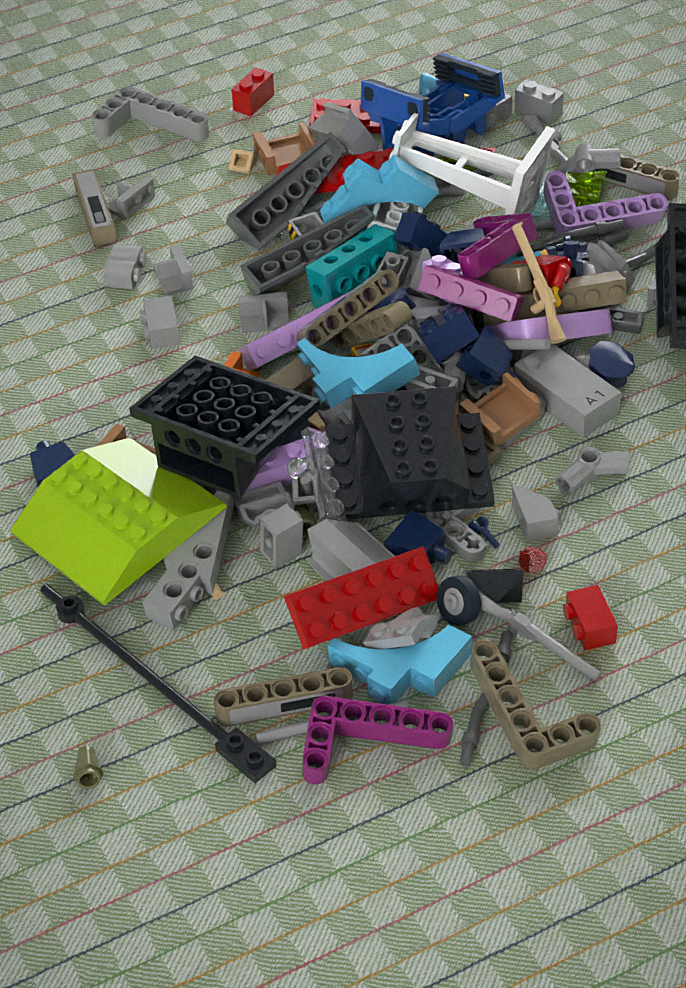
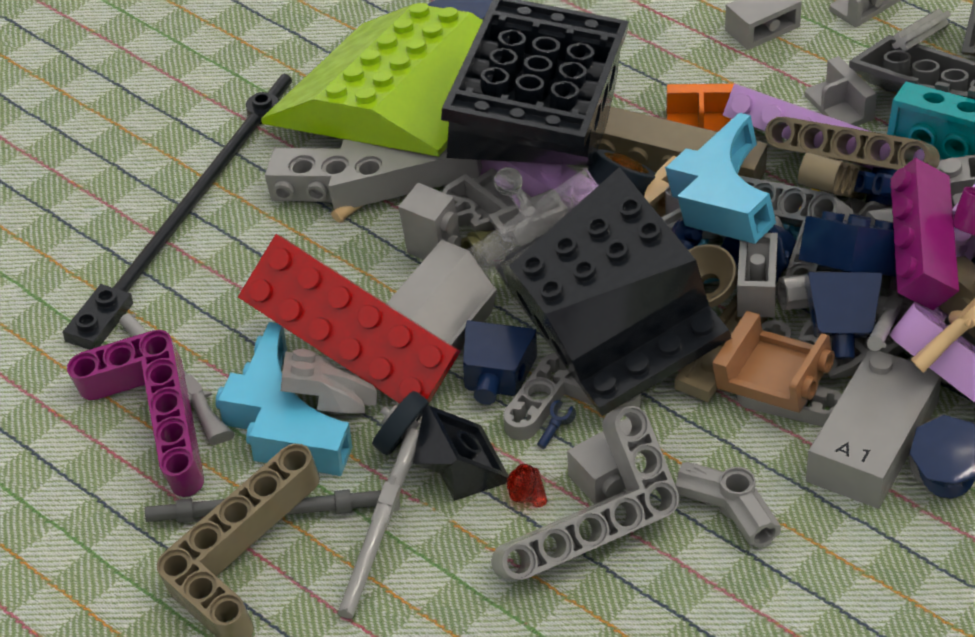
camera: 70 degrees right, 0 degrees up
(87, 768) = (32, 196): olive cone -> none
(246, 250) = (921, 30): none -> light grey axle
(280, 696) = (188, 317): dark tan beam -> none
(584, 521) = (602, 514): none -> light grey beam
(590, 617) = (439, 573): red brick -> none

